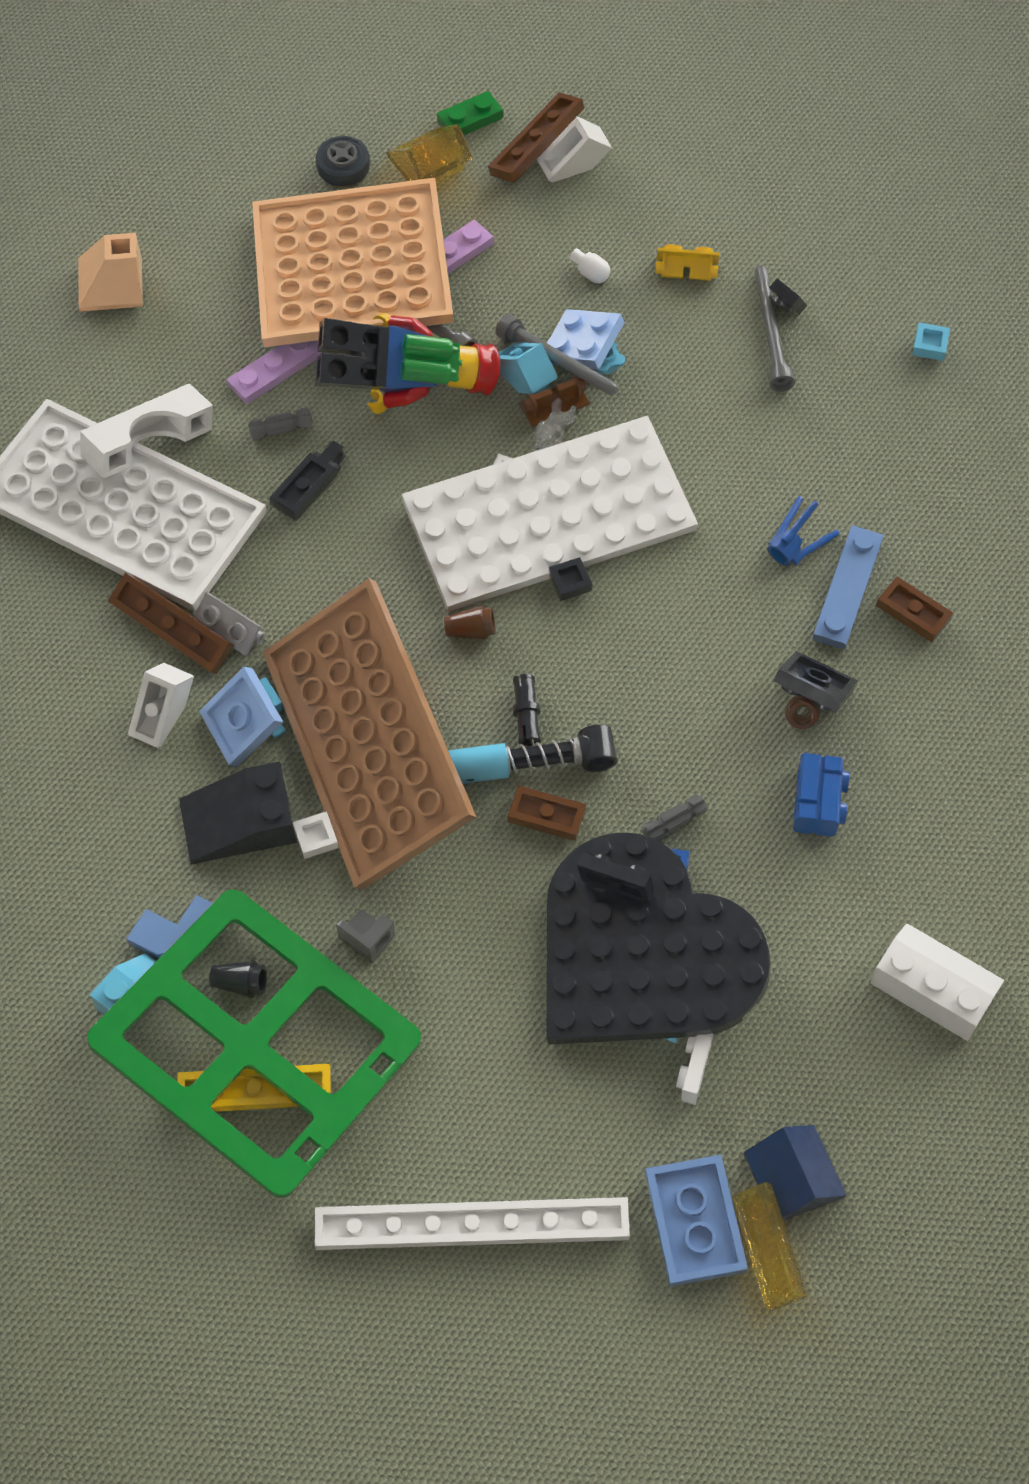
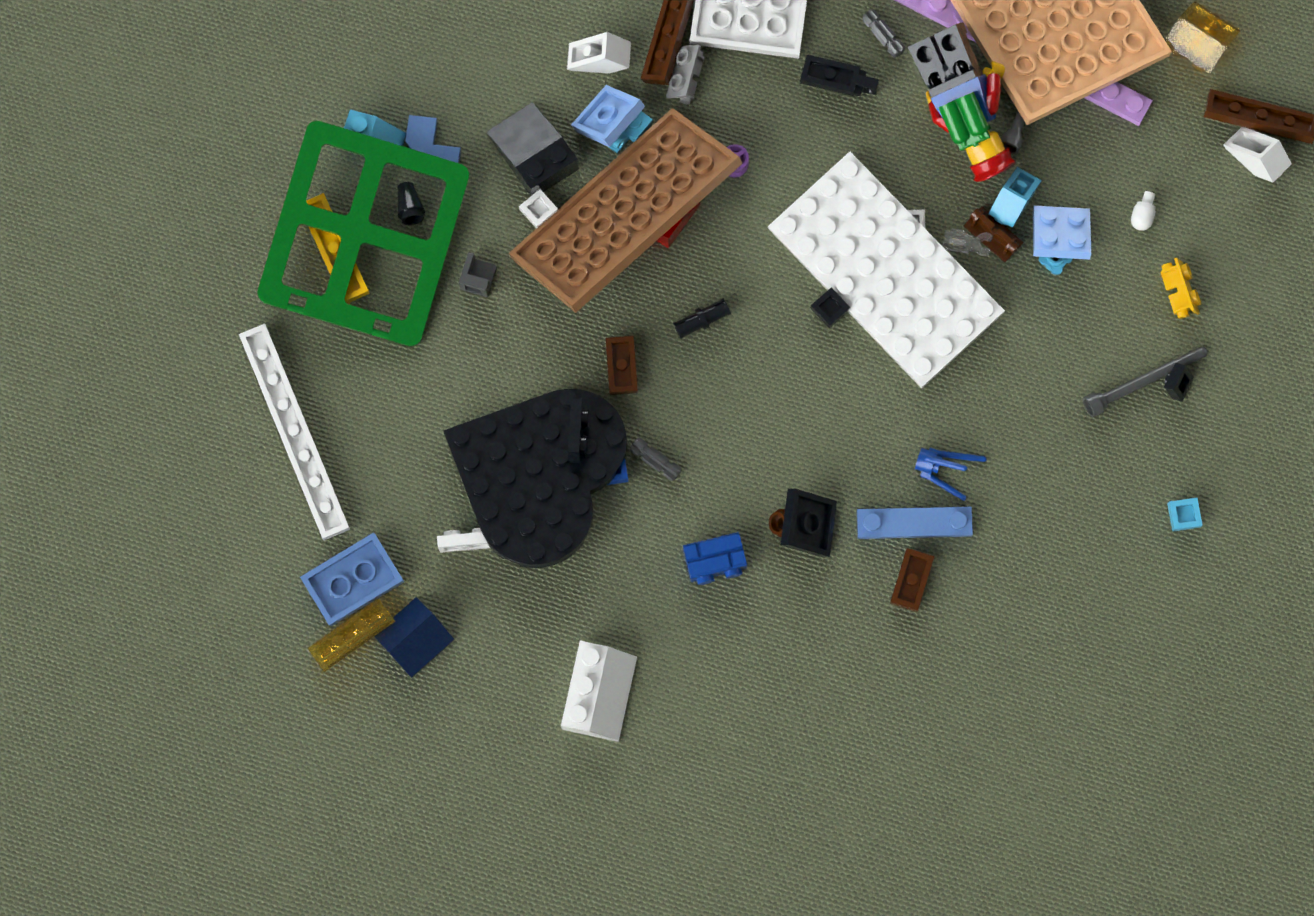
camera: 70 degrees right, 15 degrees up
(472, 113) = (1265, 53): green plate -> none
(472, 623) = (759, 249): reddish brown cone -> none
(511, 330) = (1047, 174): dark grey piece -> none
(591, 749) = (648, 313): piece -> none

